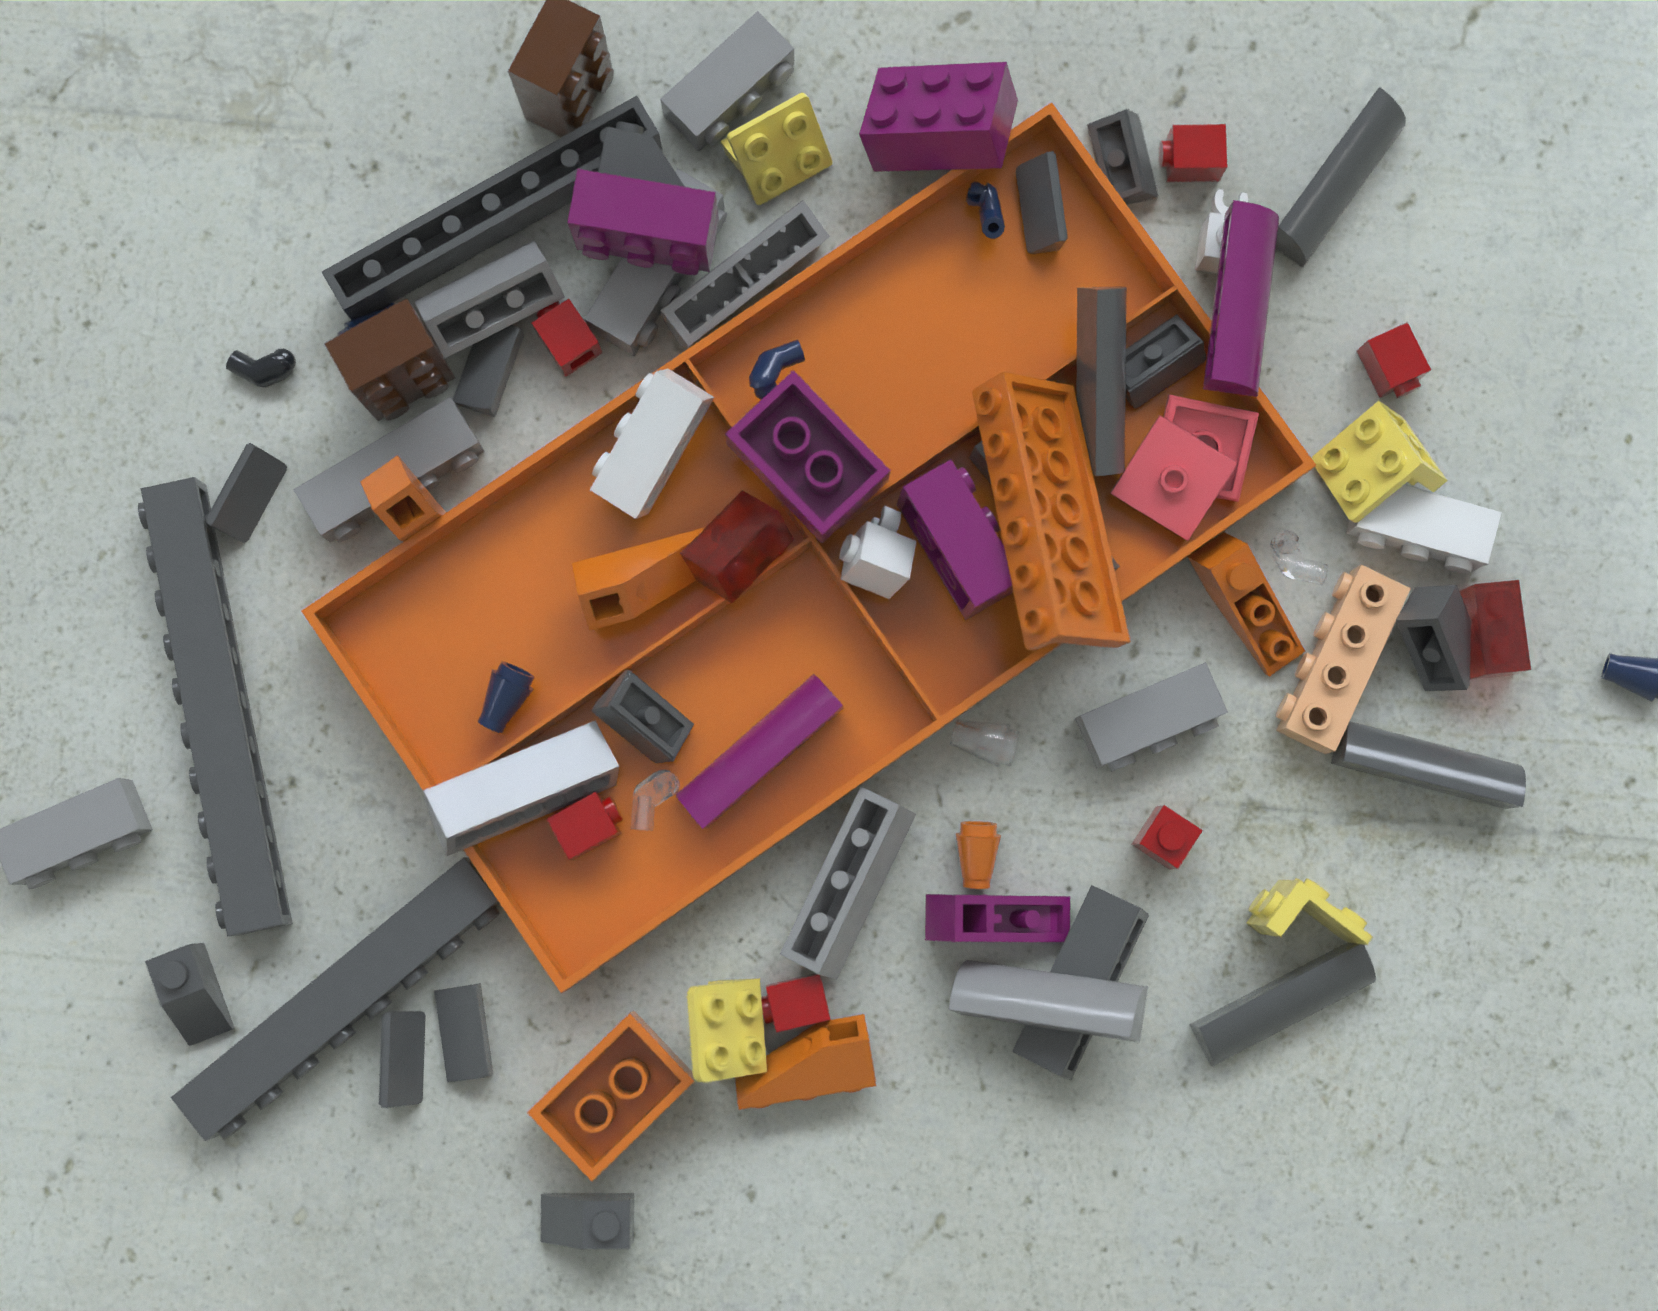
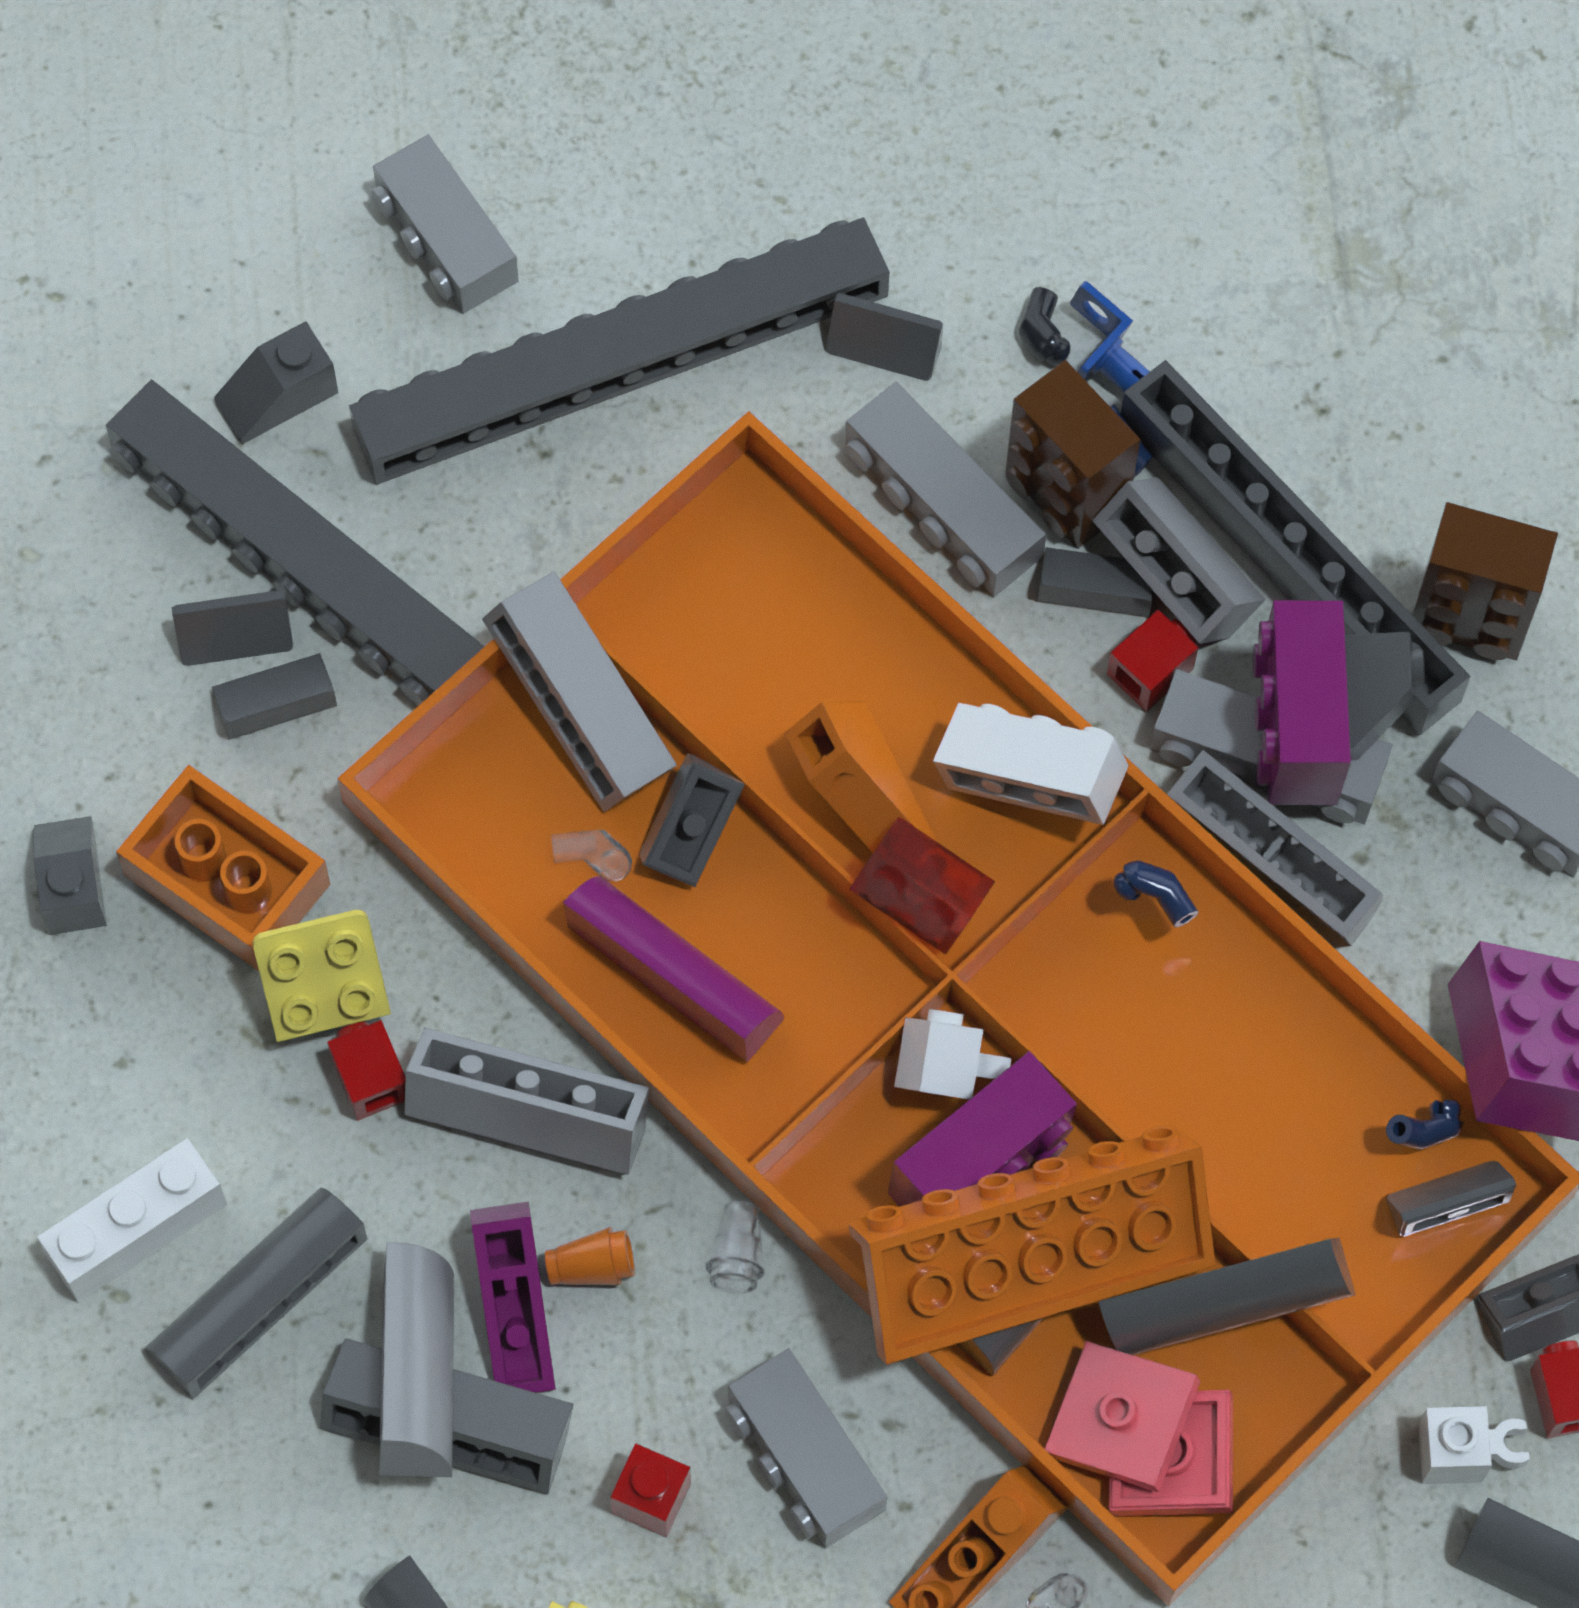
camera: 85 degrees right, 15 degrees down
(298, 319) = (1109, 357): none -> blue bracket
(400, 499) = (903, 494): orange slope -> none
(505, 694) = (691, 658): dark blue cone -> none
(586, 824) = (546, 779): red brick -> none
(778, 148) = (1450, 865): light yellow bracket -> none
(807, 456) = (1046, 939): magenta brick -> none
(815, 1063) = (299, 1107): orange slope -> none
(890, 1206) = (132, 1220): none -> white brick
(958, 1116) = (257, 1292): none -> dark grey brick
(1161, 360) = (1275, 1378): dark grey slope -> none
(1241, 299) = (1371, 1452): magenta brick -> none

